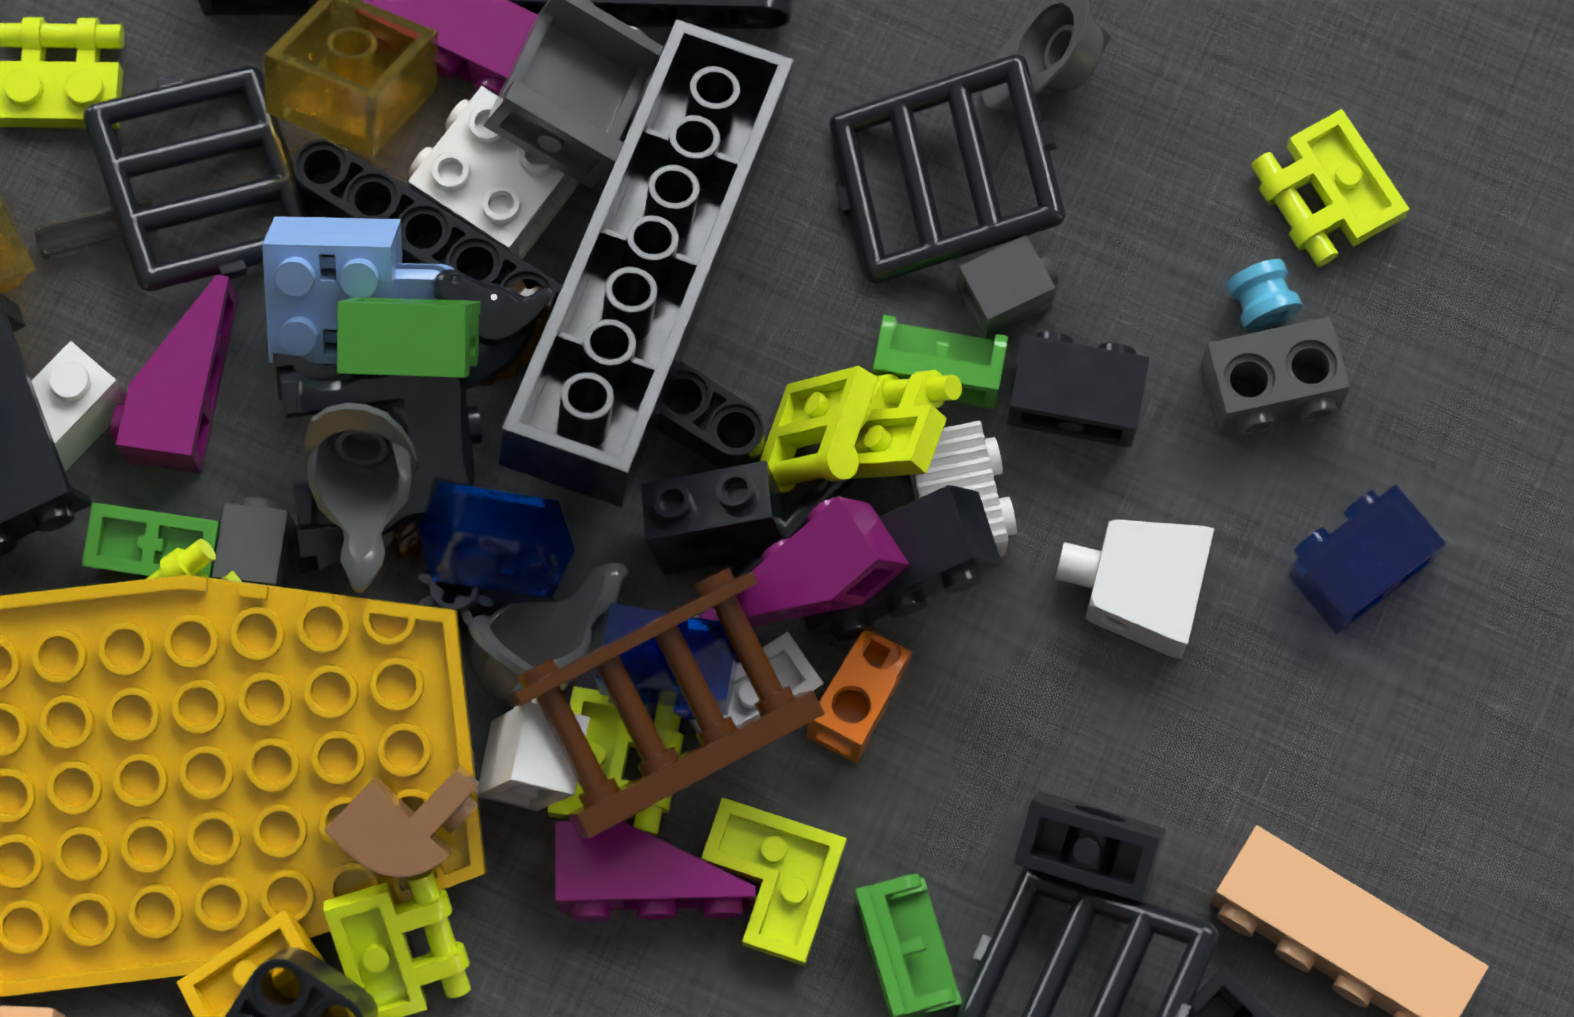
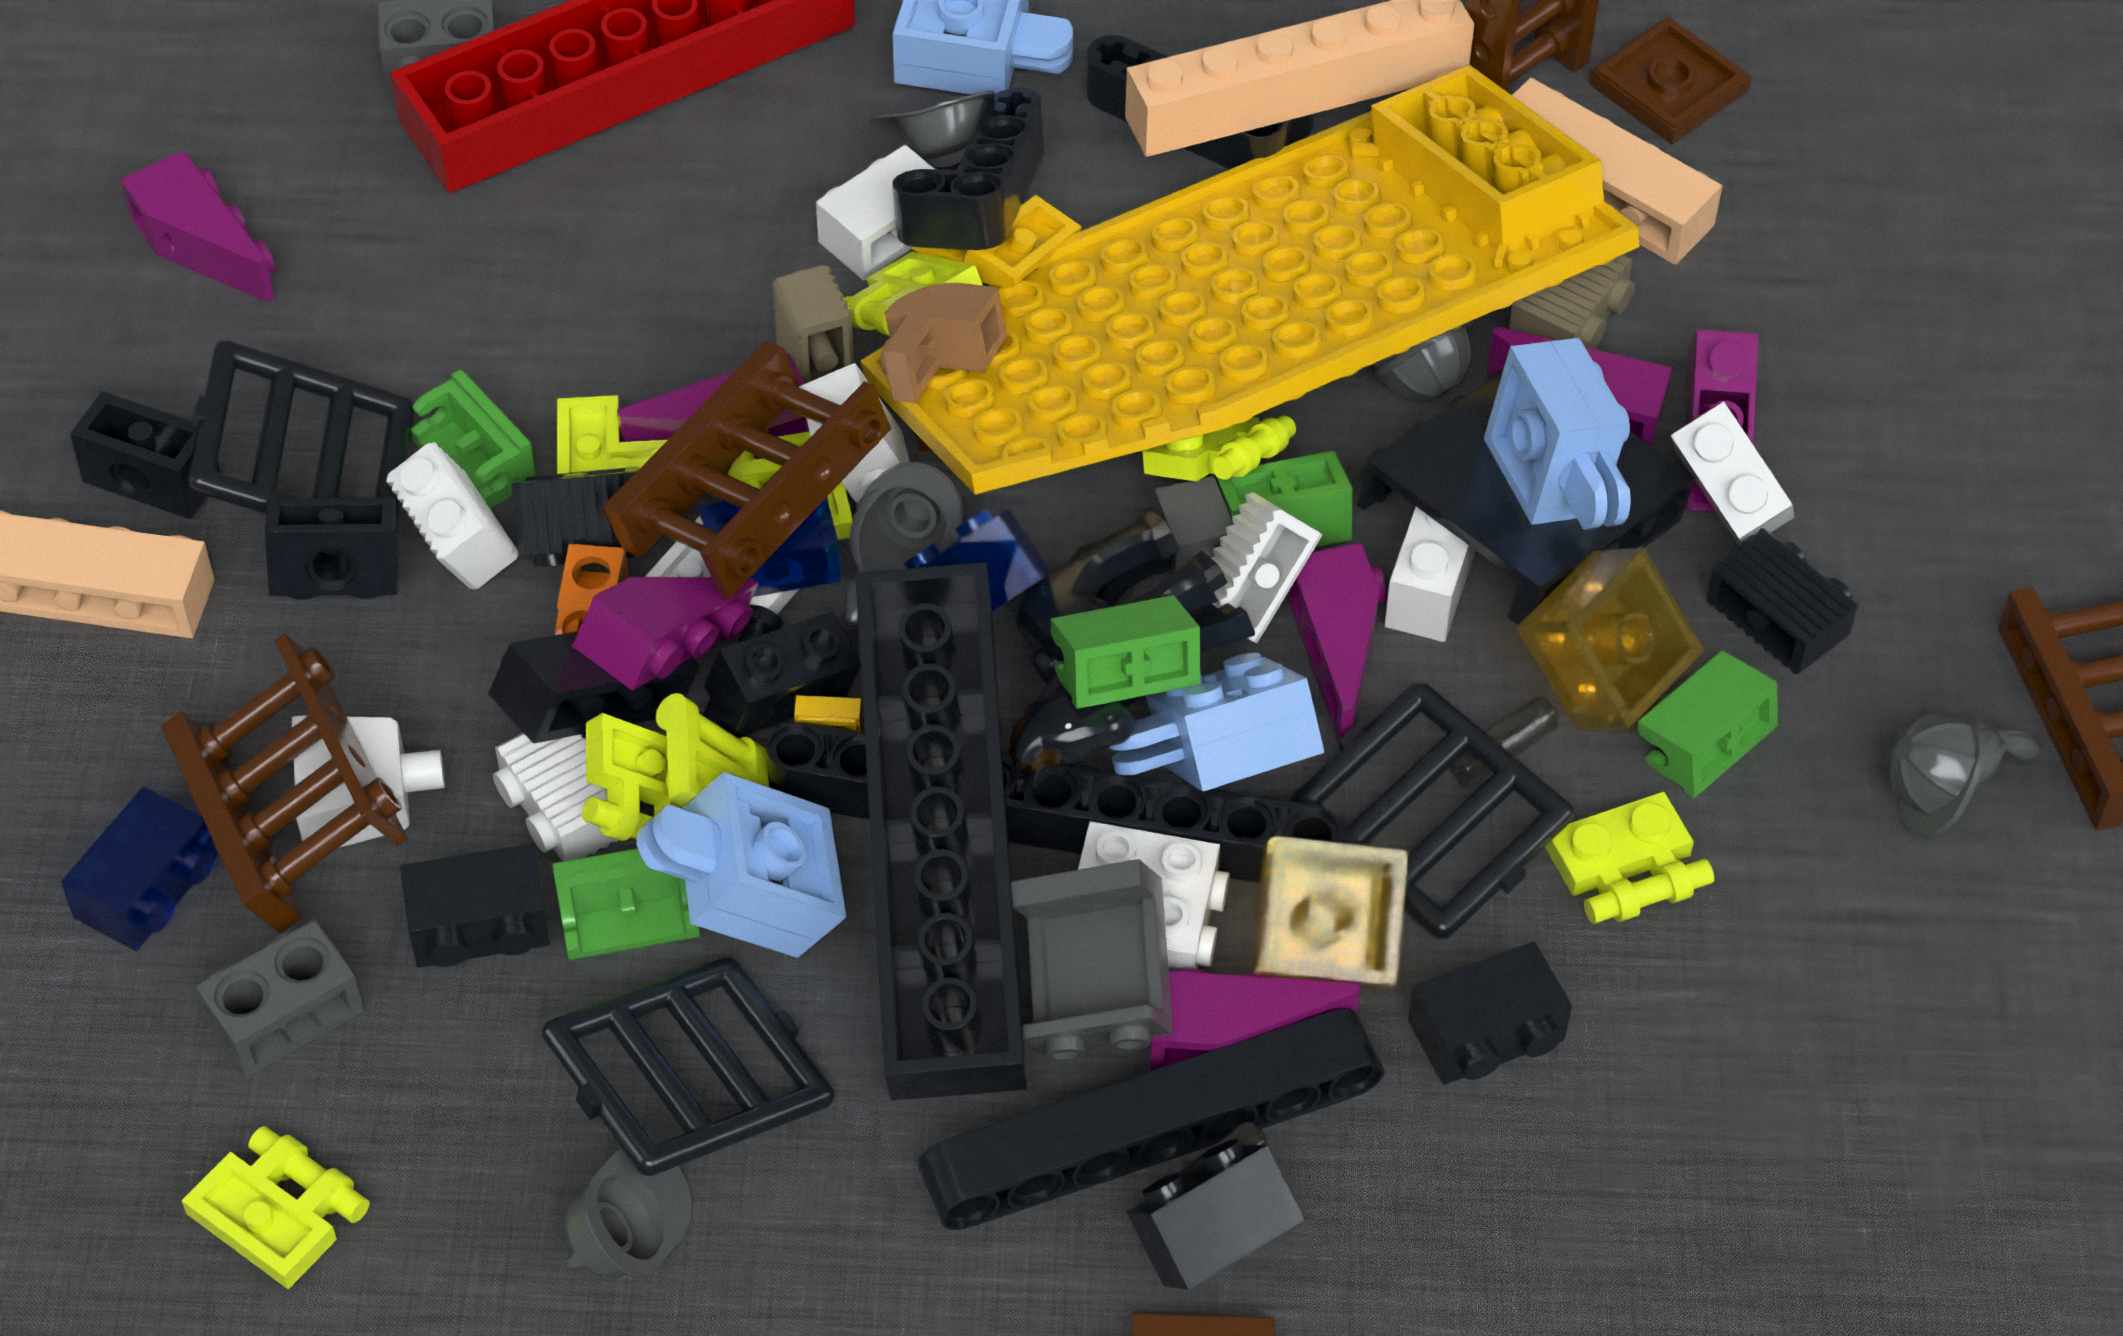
camera: 155 degrees right, 20 degrees down
(228, 451) = (1262, 559): none -> white brick
(360, 480) = (1106, 545): dark grey piece -> none
(520, 913) = (813, 322): none -> dark tan brick
(682, 459) = (830, 712): none -> yellow tile
(824, 306) = (751, 863): none -> light blue brick
(834, 795) = (565, 511): none -> black brick
(960, 840) = (452, 516): none -> white brick
(1007, 286) = (580, 974): dark grey brick -> none
(1264, 295) = (313, 1068): medium azure wheel -> none
(1271, 554) = (224, 792): none -> reddish brown fence

